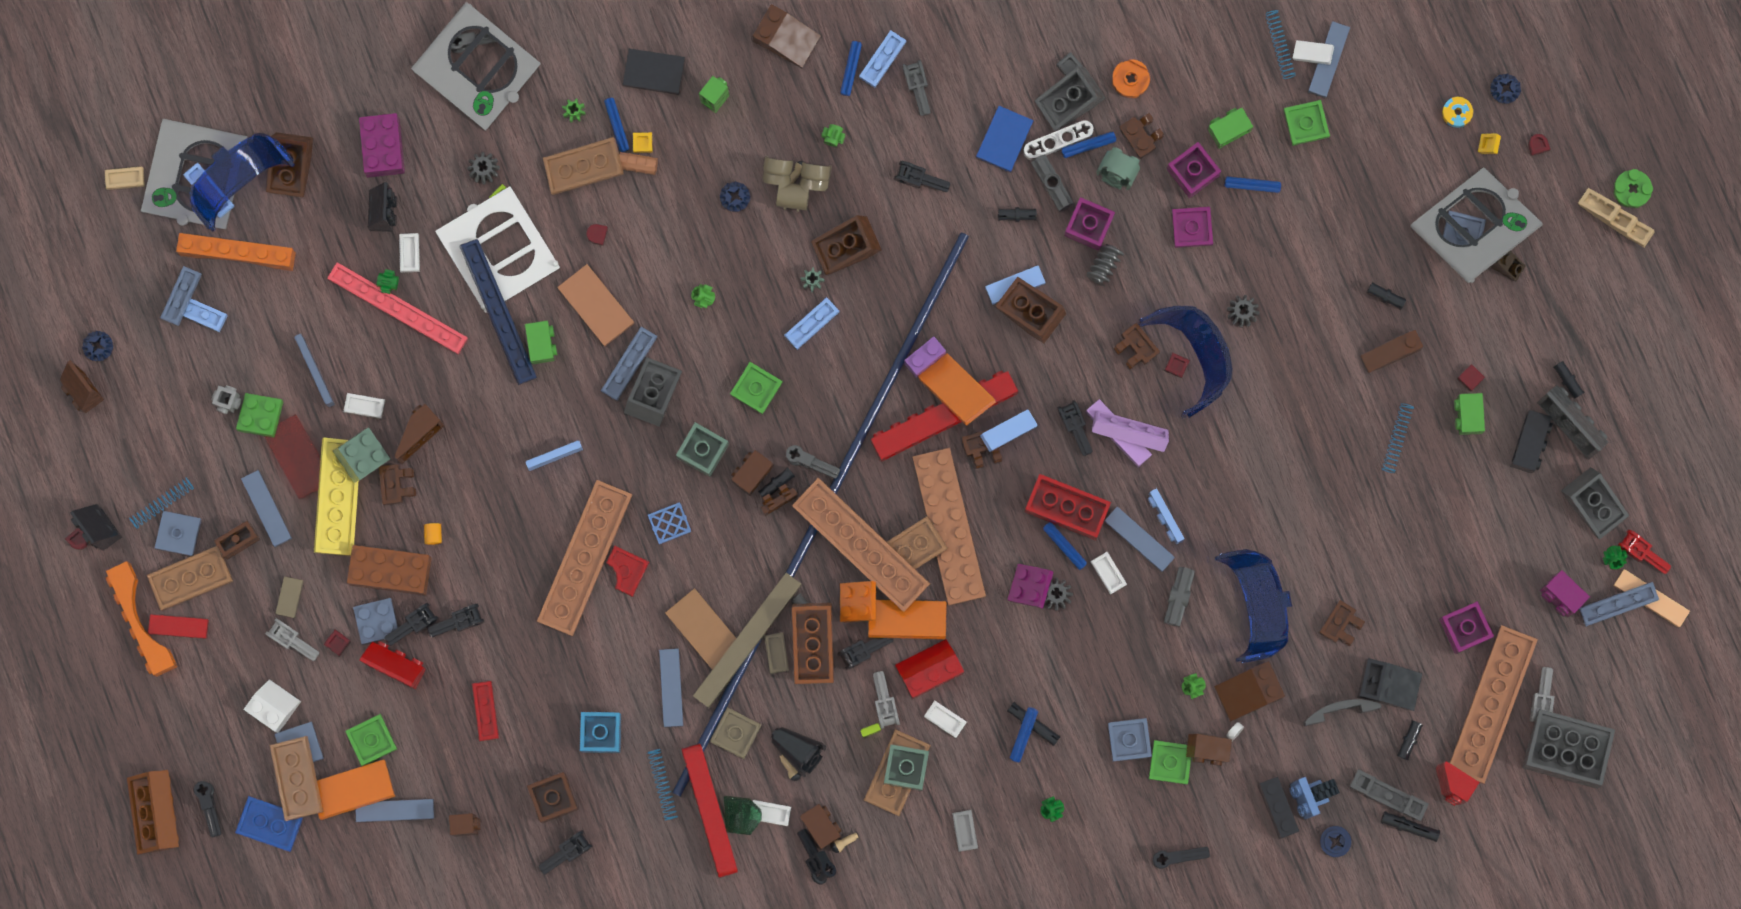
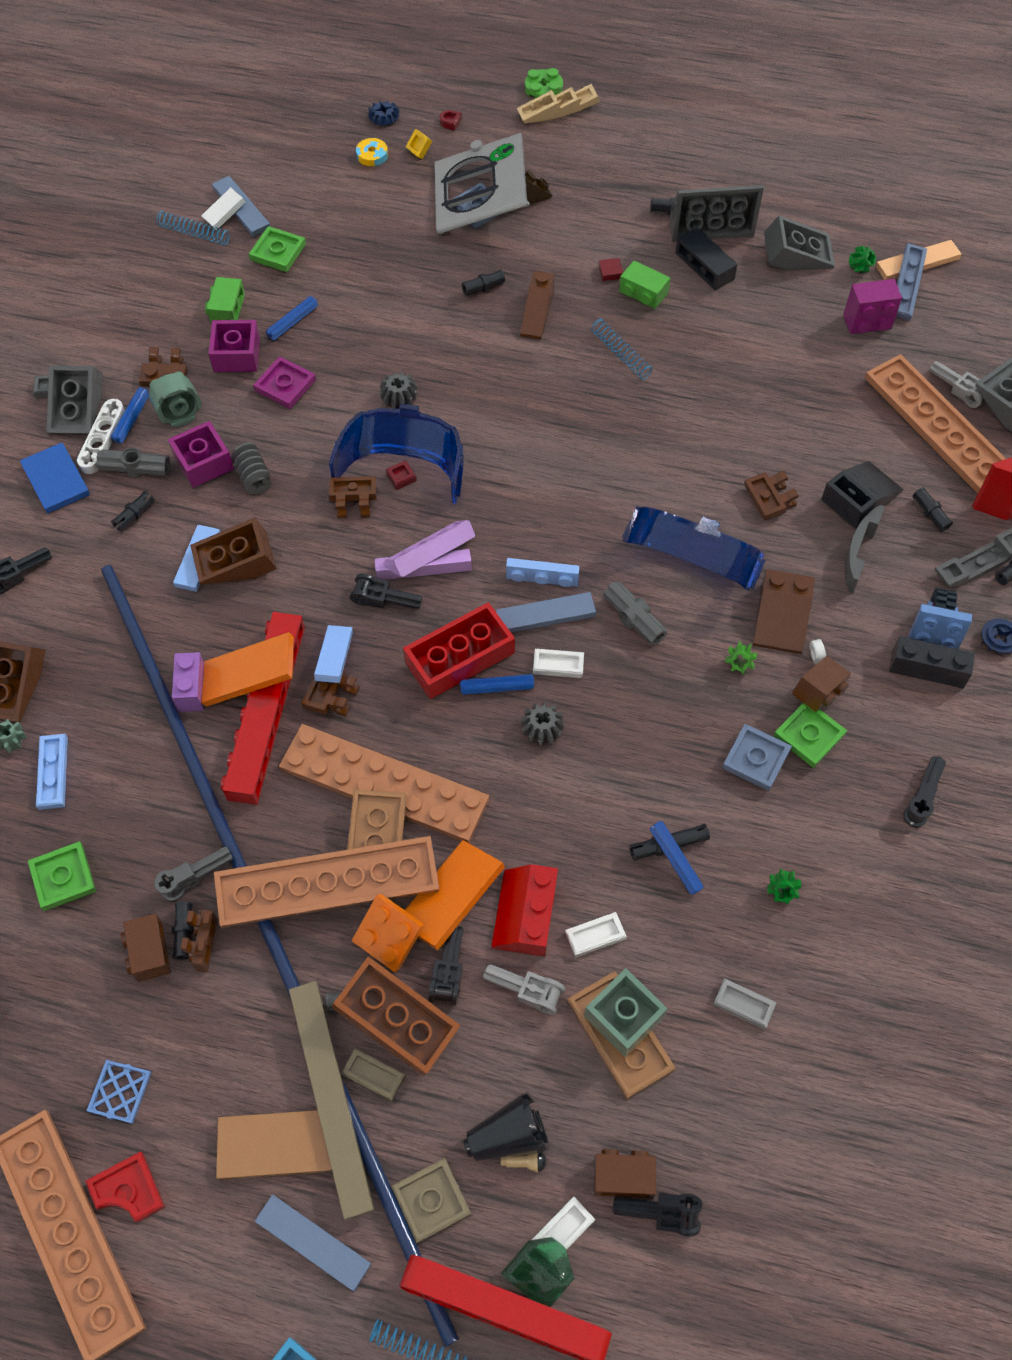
camera: 55 degrees left, 20 degrees down
(702, 449) = (70, 983): sand green brick -> none
(838, 845) = (664, 1172): tan piece -> none
(873, 729) = (548, 1027): lime tile -> none
(1030, 586) = (514, 741): magenta plate -> none
(1132, 89) = (108, 356): orange plate -> none
(1466, 627) = (850, 397): magenta brick -> none
(1640, 549) = (869, 239): red connector -> none

